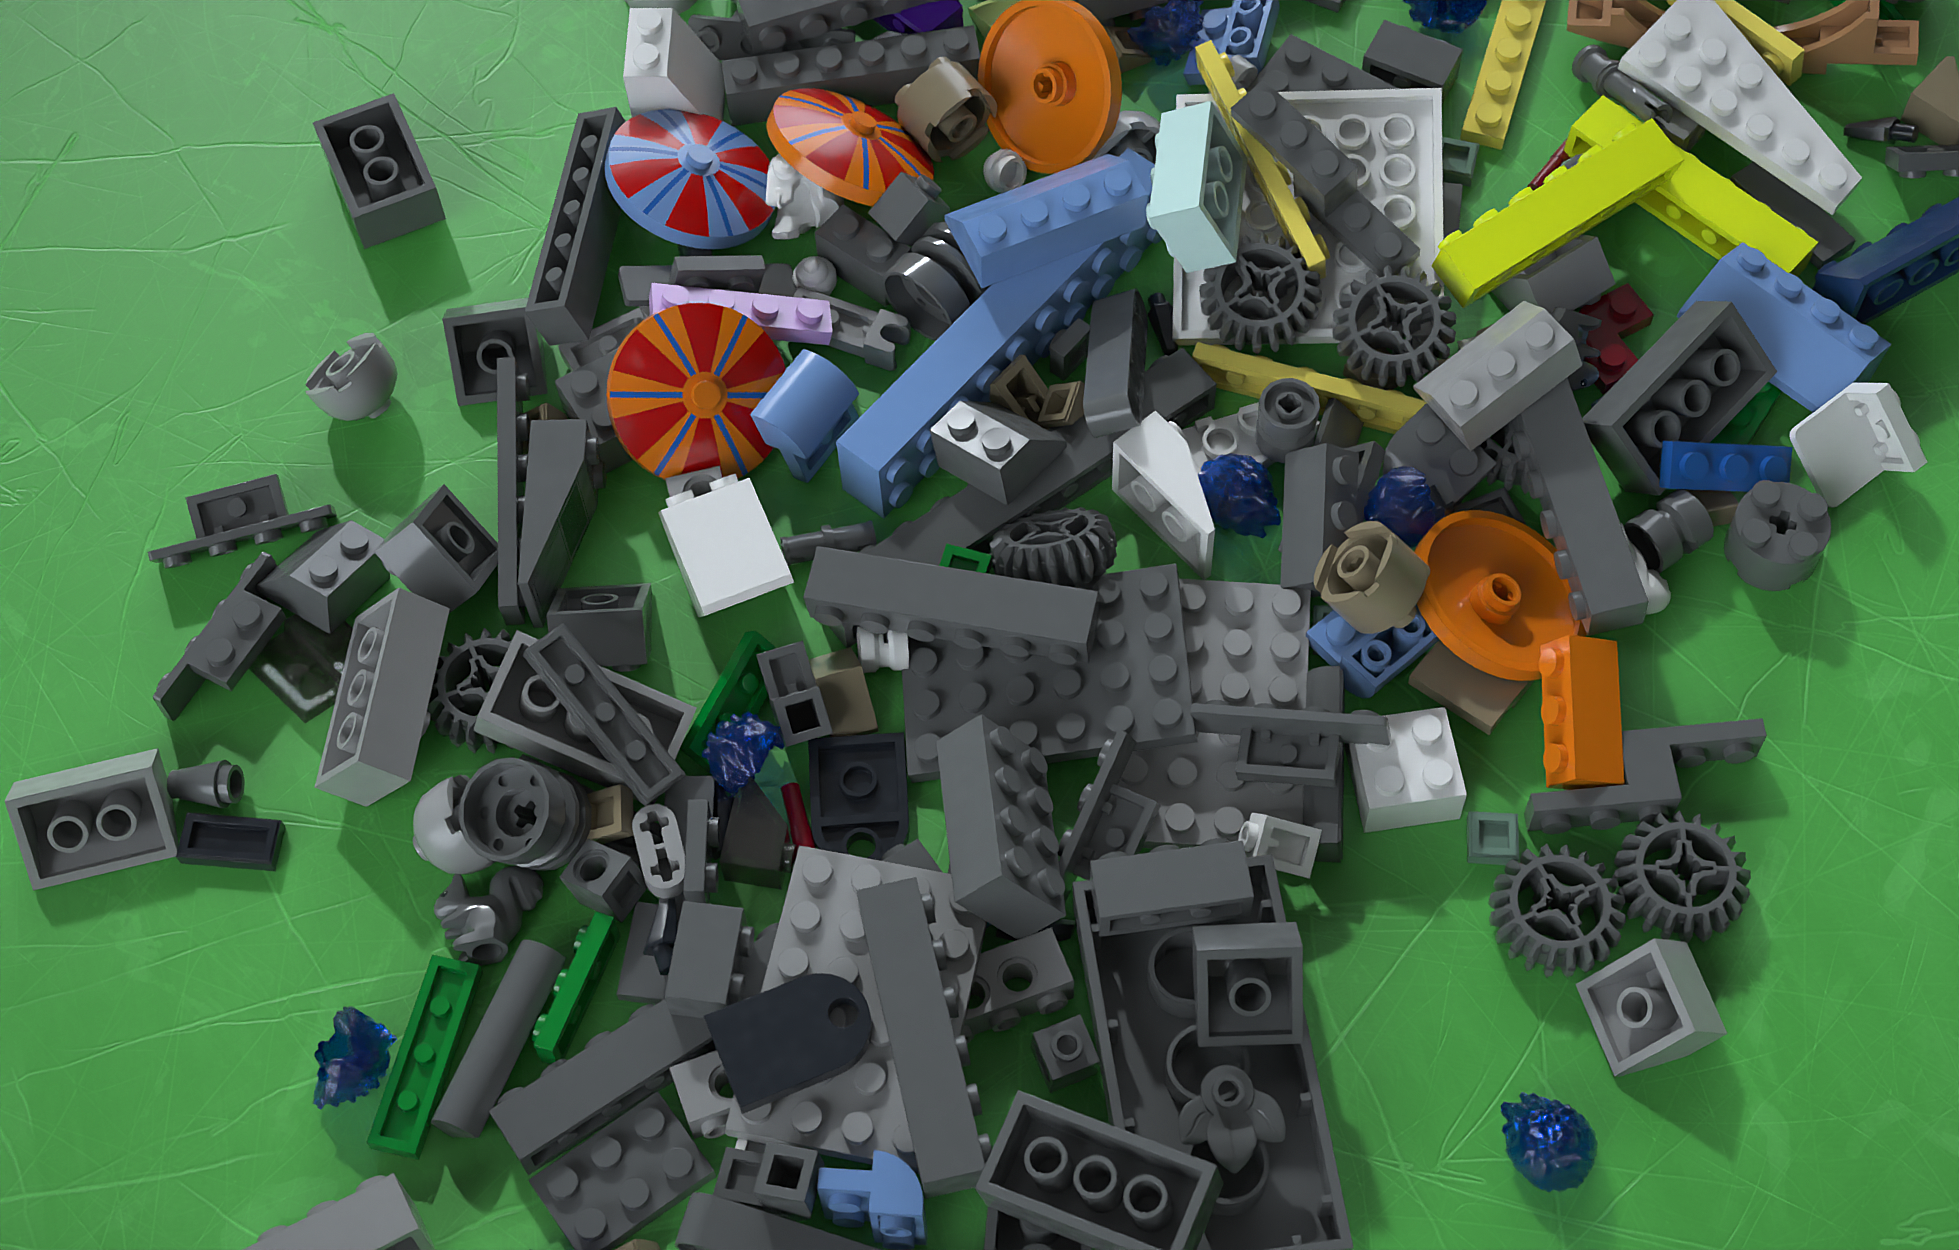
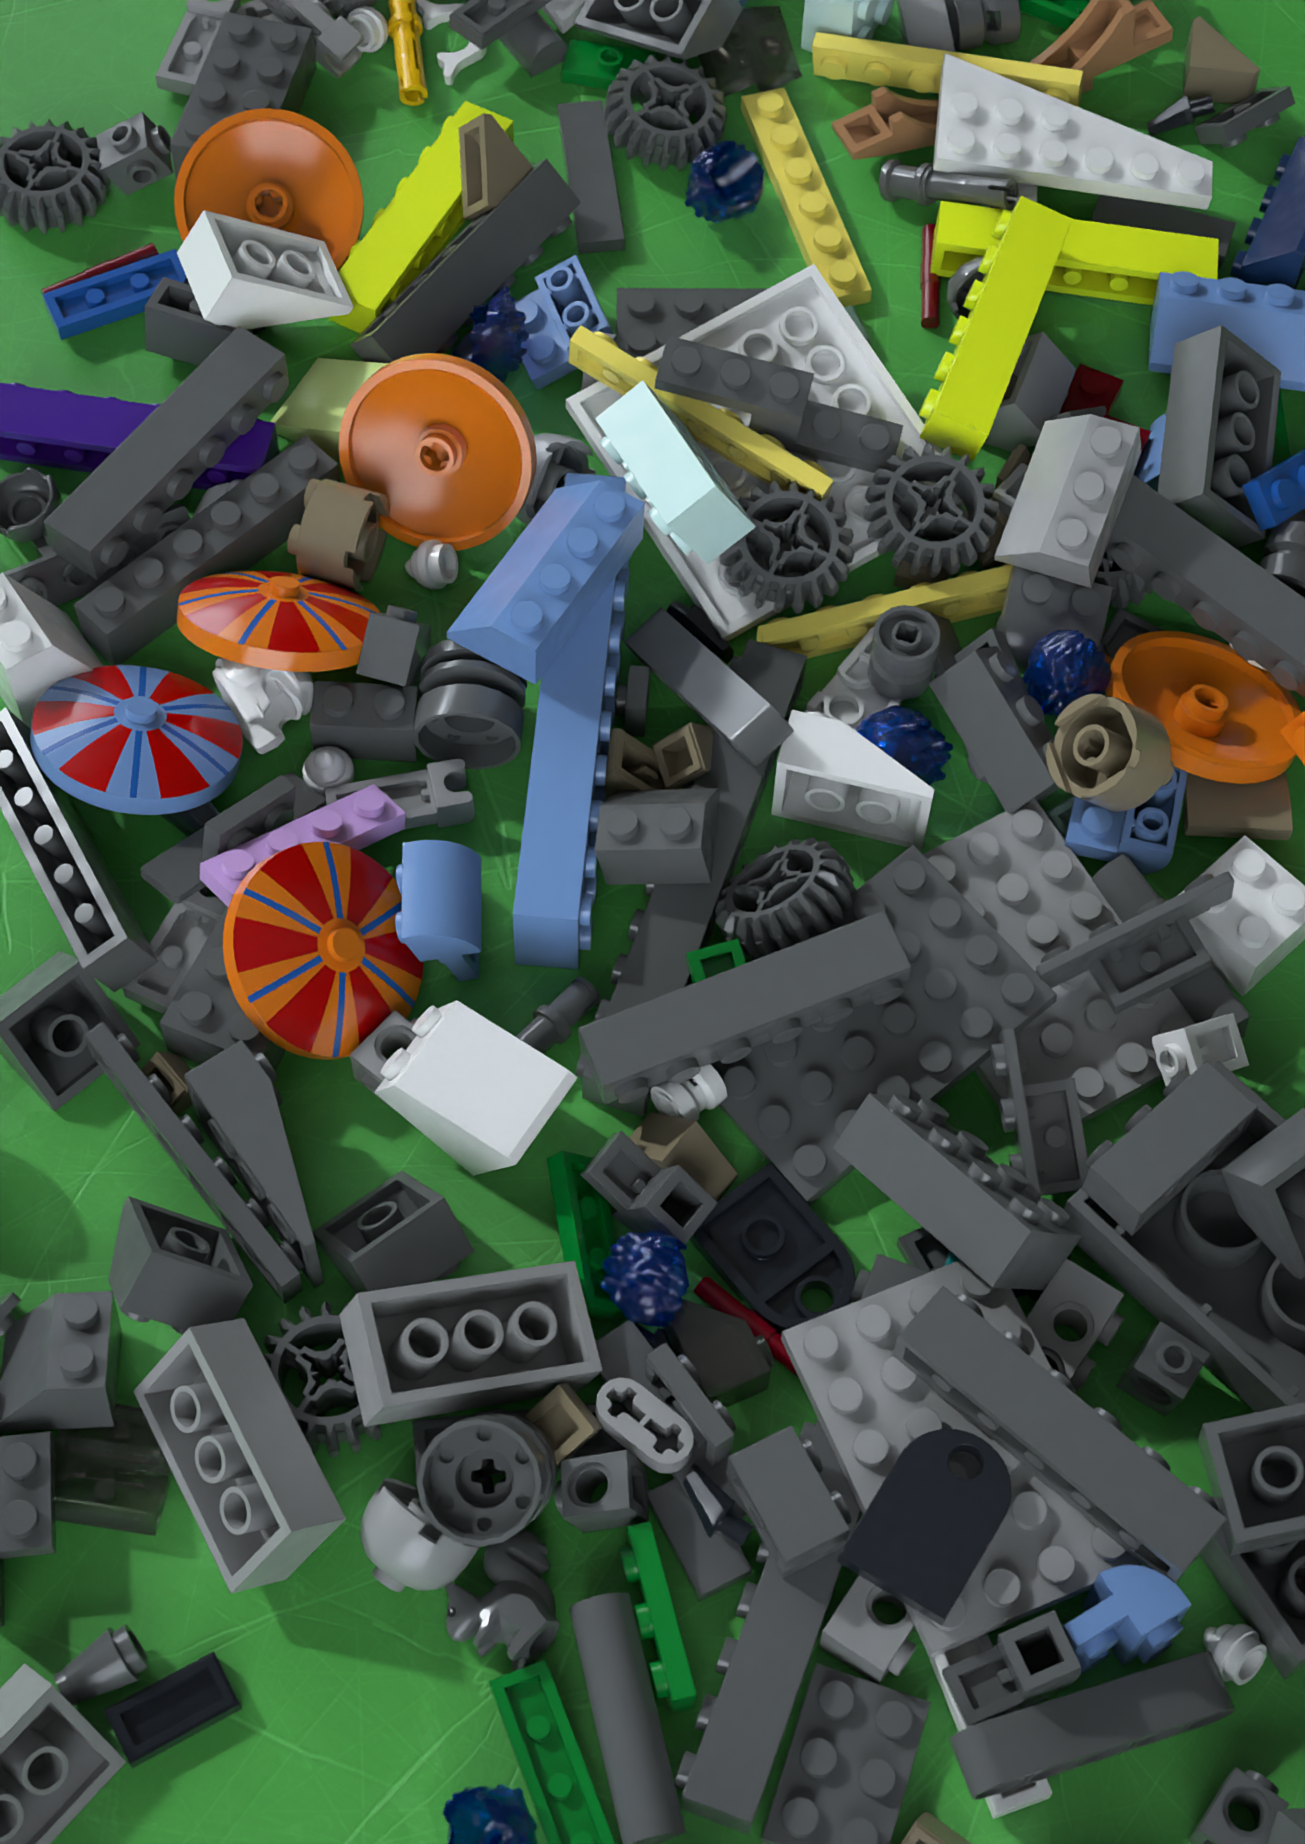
camera: 40 degrees left, 0 degrees up
(604, 714) = (498, 1323): dark grey tile -> none
(1412, 59) = (738, 257): dark grey brick -> none

